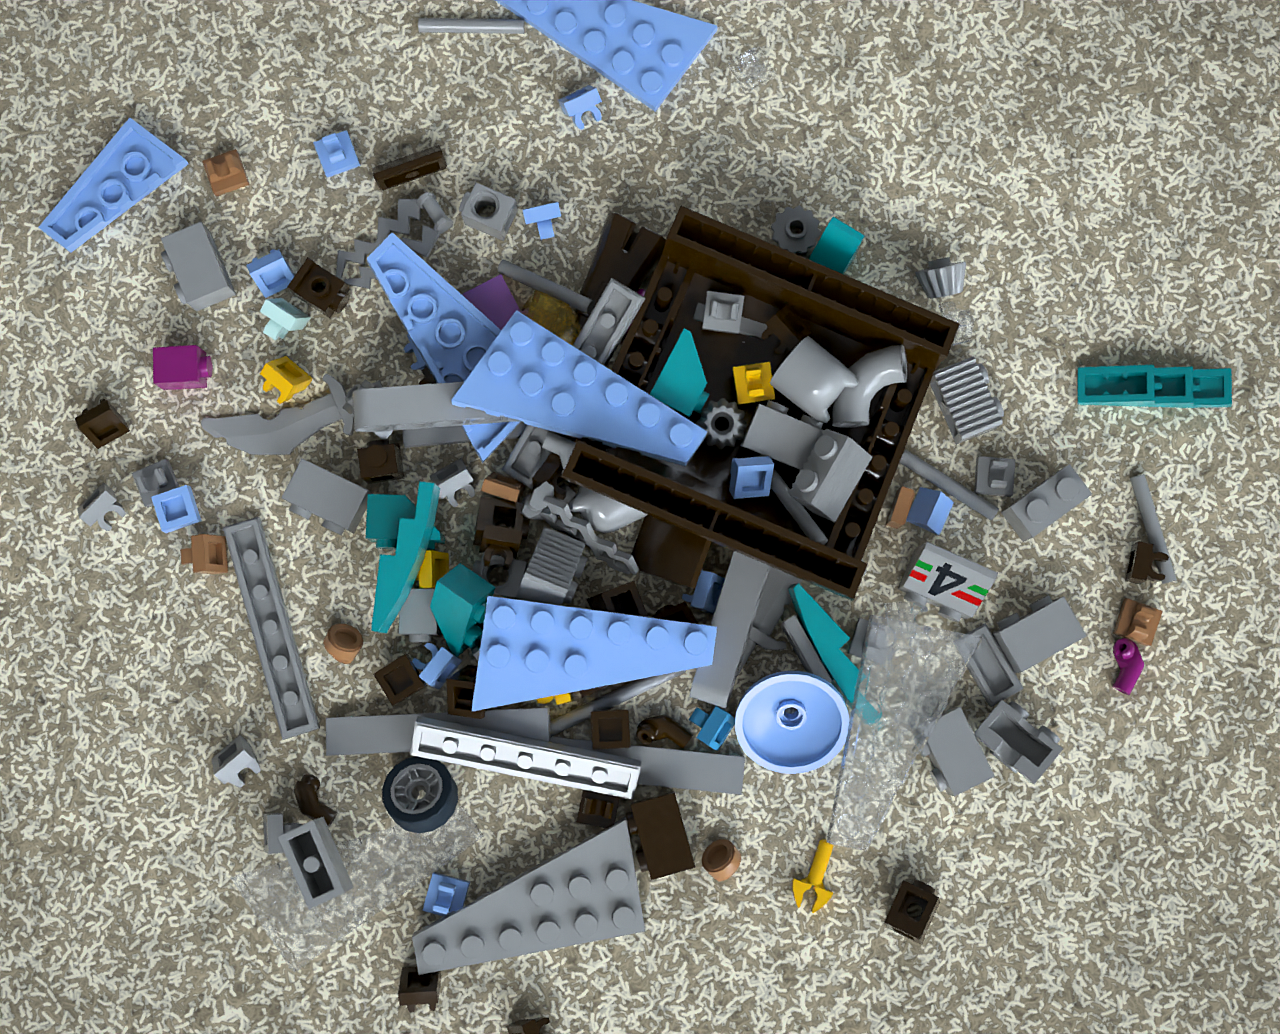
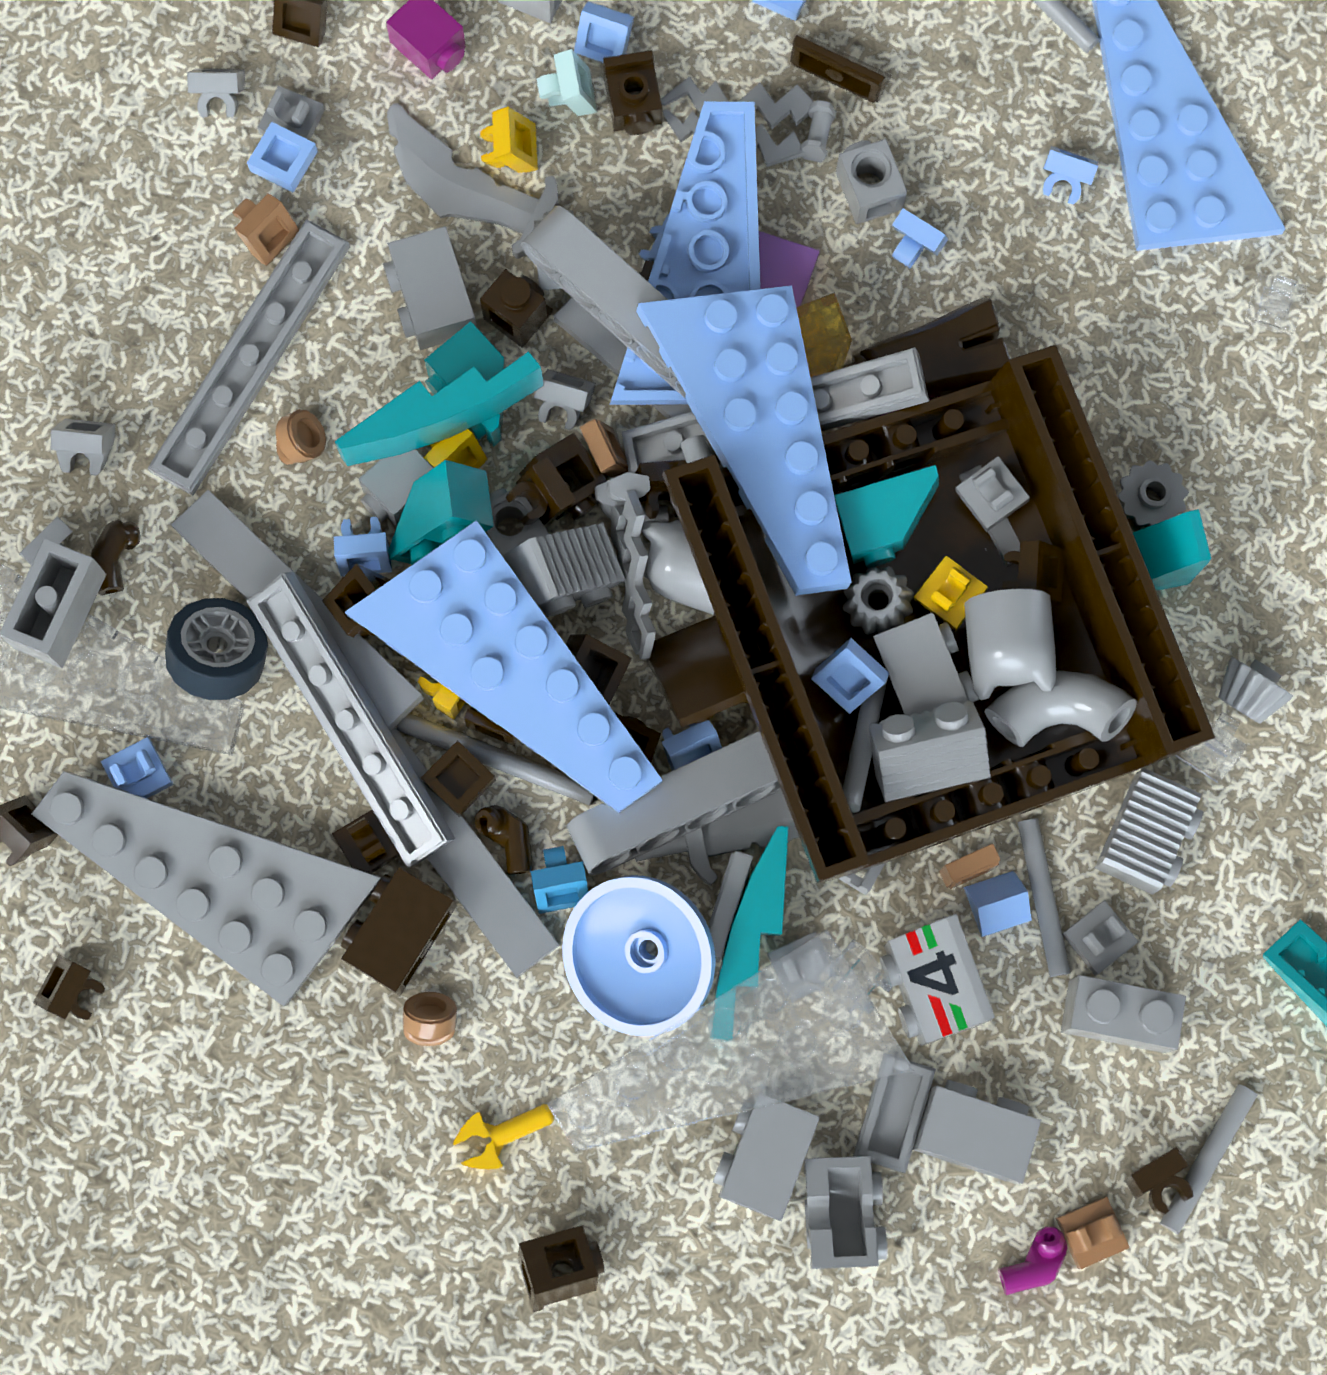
camera: 40 degrees right, 5 degrees down
(399, 679) = (313, 524): dark brown tile -> none
(546, 286) = (848, 300): light grey bar -> none

